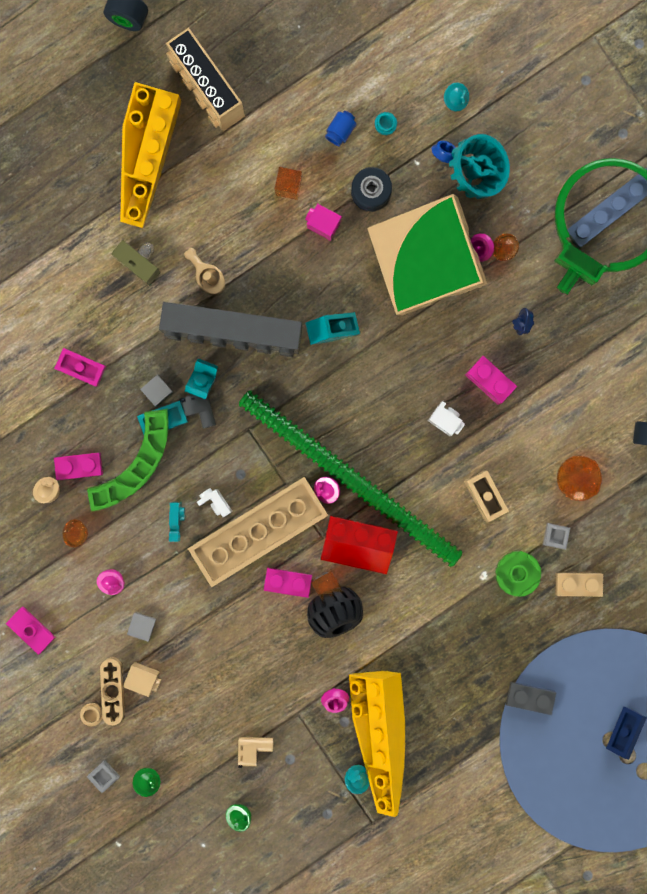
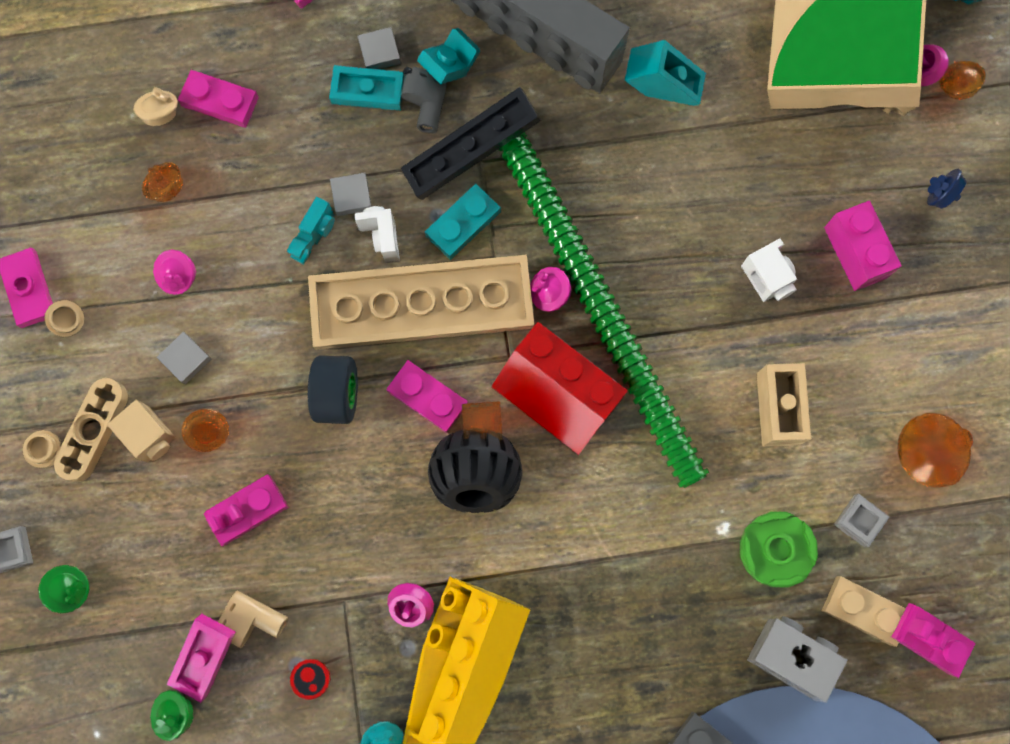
camera: 25 degrees right, 10 degrees down
(63, 638) = (64, 318): none -> tan plate
(140, 469) = (302, 137): bright green tile -> none
(176, 661) = (205, 430): none -> clear orange hat
(185, 487) = (350, 194): none -> light grey tile
(220, 692) = (245, 510): none -> dark pink plate
(235, 606) = (332, 389): none -> black wheel
(239, 781) = (201, 657): none -> dark pink plate
(241, 428) = (470, 143): none -> black plate
(257, 472) = (463, 221): none -> teal plate
(301, 763) = (310, 679): none -> tile
(564, 636) = (821, 663): none -> light grey brick
(620, 584) = (933, 640): none -> dark pink plate

